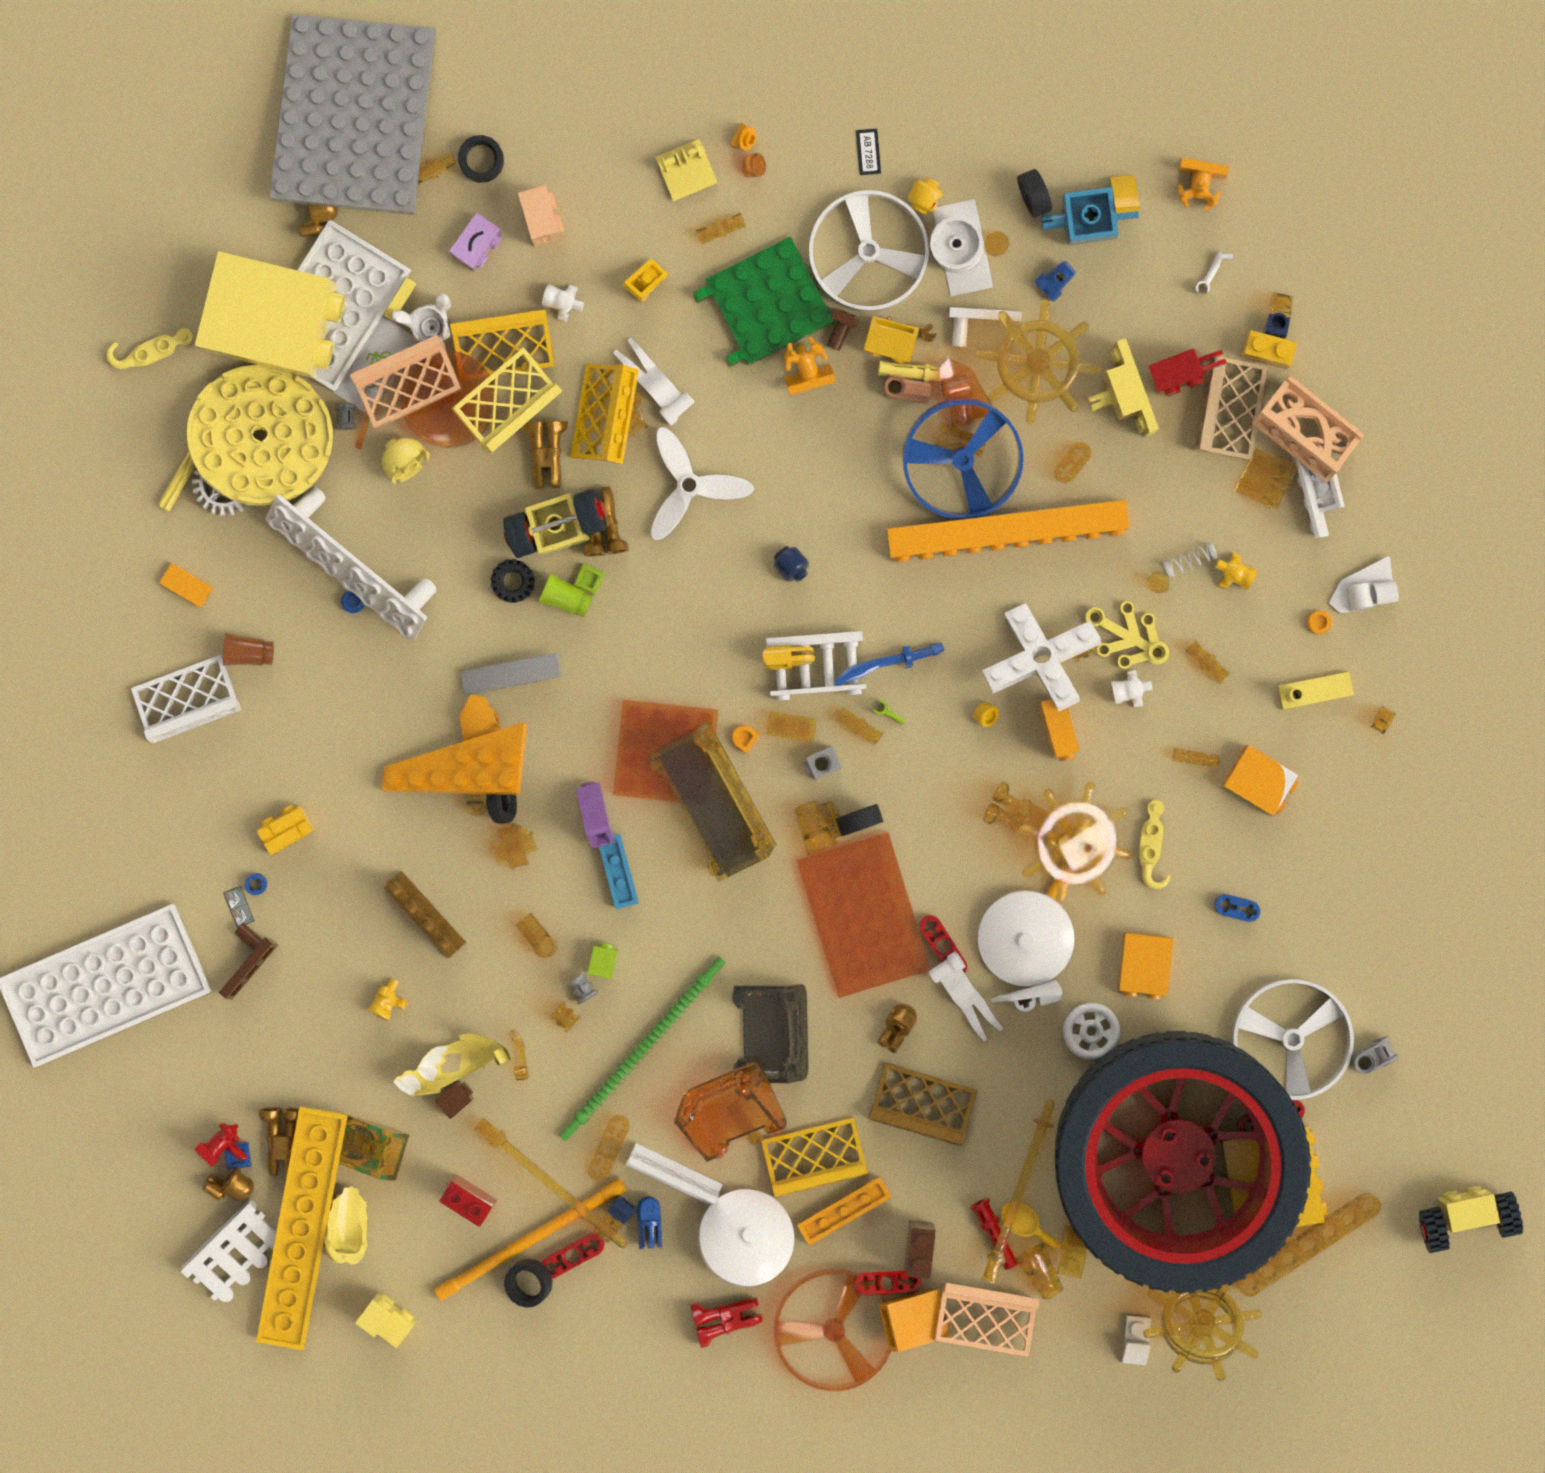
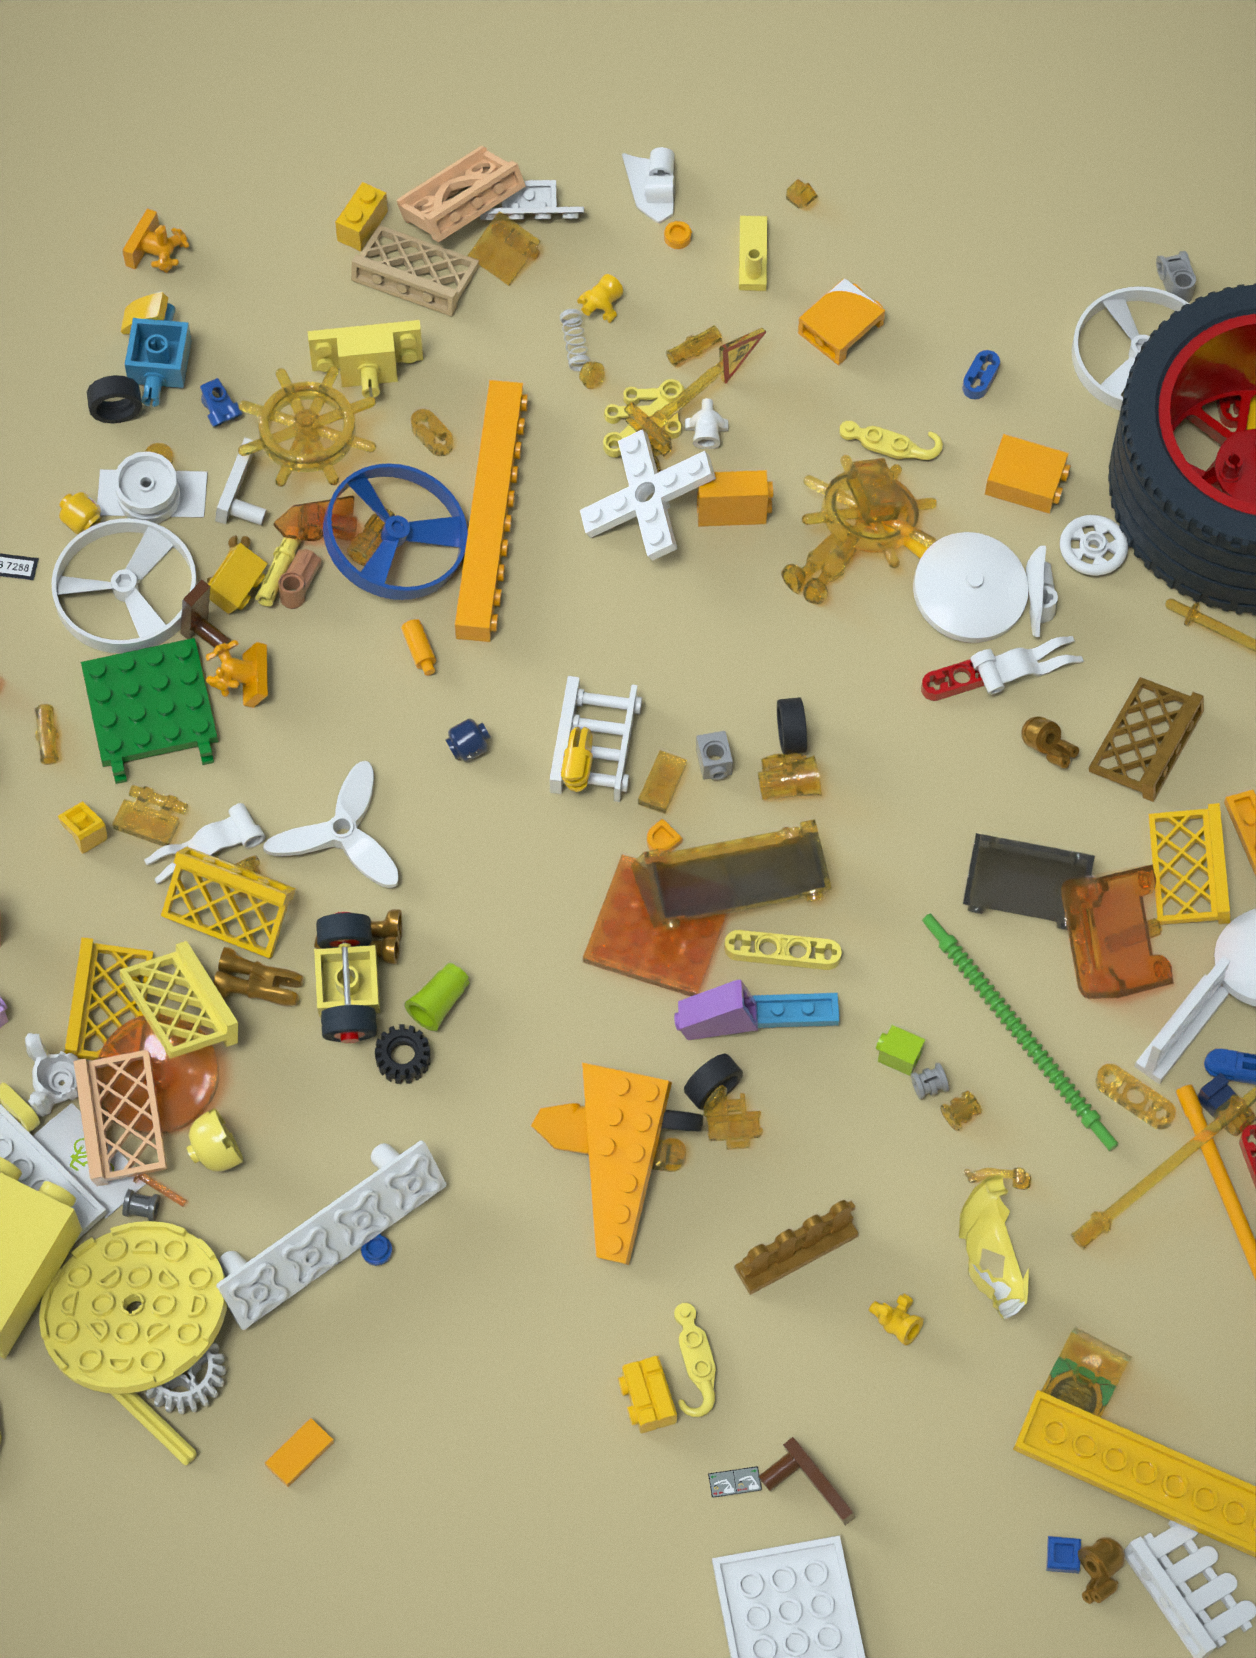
camera: 75 degrees left, 25 degrees down
(195, 717) = (474, 1478): white fence -> none
(219, 1143) = (1052, 1576): red piece -> none
(247, 651) = (405, 1391): dark orange plant -> none
(257, 891) = (711, 1440): blue bush -> none
(279, 1144) = (1060, 1489): pearl gold piece -> none
(322, 859) = (697, 1359): none -> light yellow piece
(347, 1228) = (1186, 1429): light yellow hair -> none
(455, 1099) = (1042, 1260): reddish brown brick -> none
(467, 1200) = (1173, 1264): red panel -> none
(511, 674) = (517, 1079): light grey slope -> none
(536, 934) = (851, 1120): clear yellow piece -> none
(539, 824) = (712, 1074): none -> black tyre
(561, 300) = (76, 922): white piece -> none
(589, 579) = (422, 968): lime tile -> none
(661, 329) = (146, 822): none -> clear yellow plate
(673, 852) = (783, 944): none -> light yellow beam
(859, 726) = (679, 710): clear yellow pin -> none
(862, 669) = (609, 644): blue sword -> none
(863, 915) = (906, 754): clear orange plate -> none
(868, 504) = (419, 646): none -> light orange cylinder
(889, 713) = (669, 678): lime hand -> none
(986, 714) = (698, 573): yellow tile -> none
(1114, 645) = (731, 357): none -> clear yellow piece
(1183, 370) = (361, 291): red brick -> none
(1196, 758) = (800, 380): clear yellow axle -> none
(1212, 271) = (269, 265): white piece -> none
(1278, 315) = (325, 199): leg -> none

